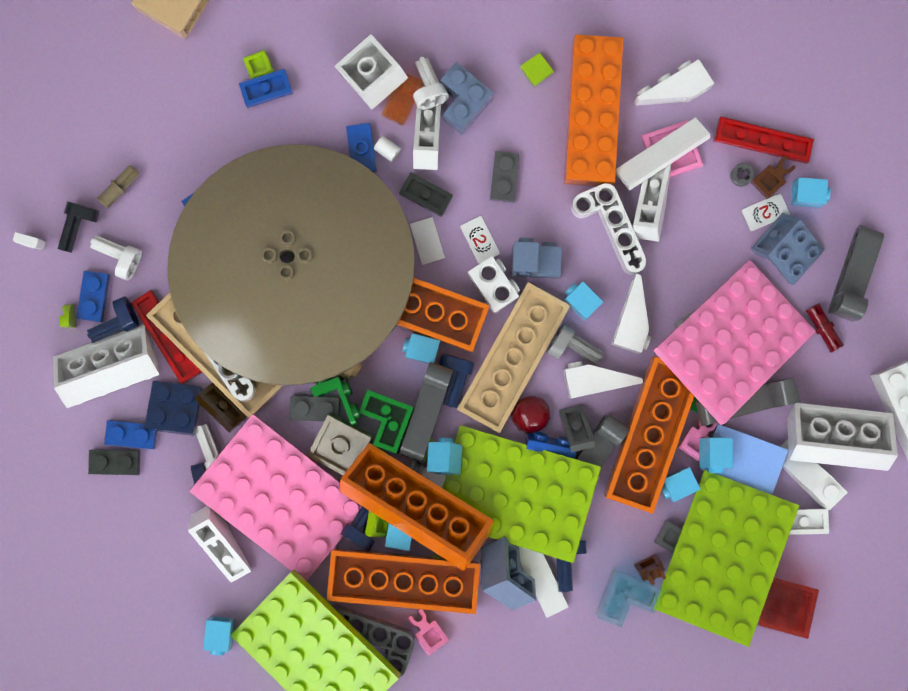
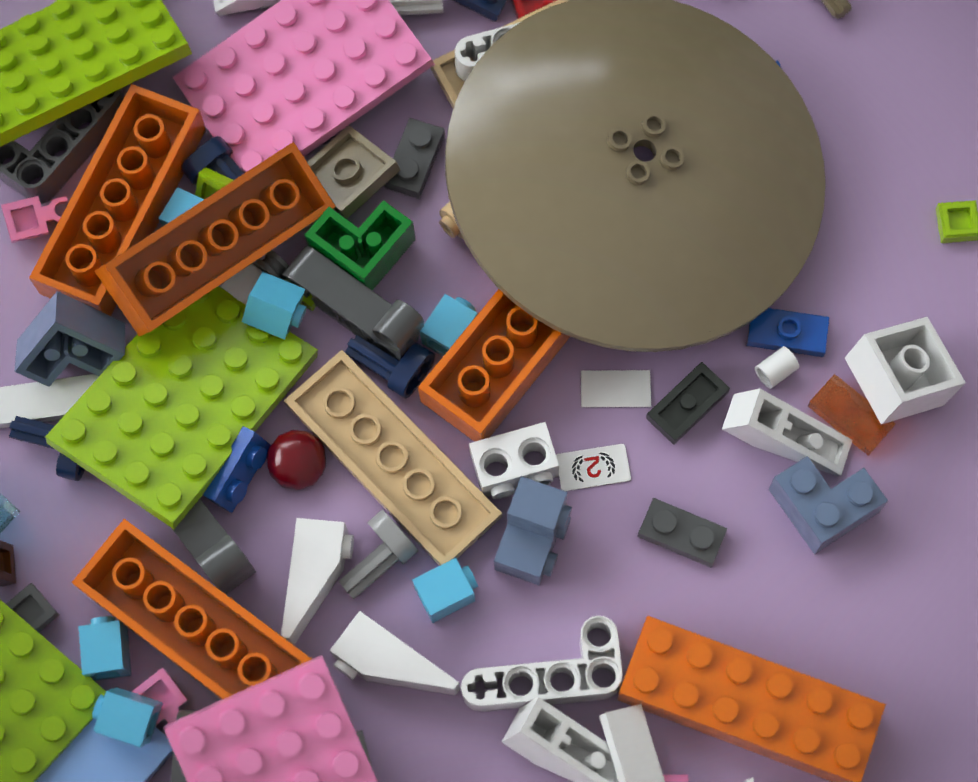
camera: 110 degrees right, 15 degrees down
(220, 407) = (445, 34): dark brown plate -> none
(265, 88) = (919, 219): blue plate -> none
(344, 388) = (414, 192): green bracket -> none
(434, 92) = (846, 457): white piece -> none
(536, 69) = (844, 636): lime tile -> none
(577, 428) = (247, 514): dark grey plate -> none

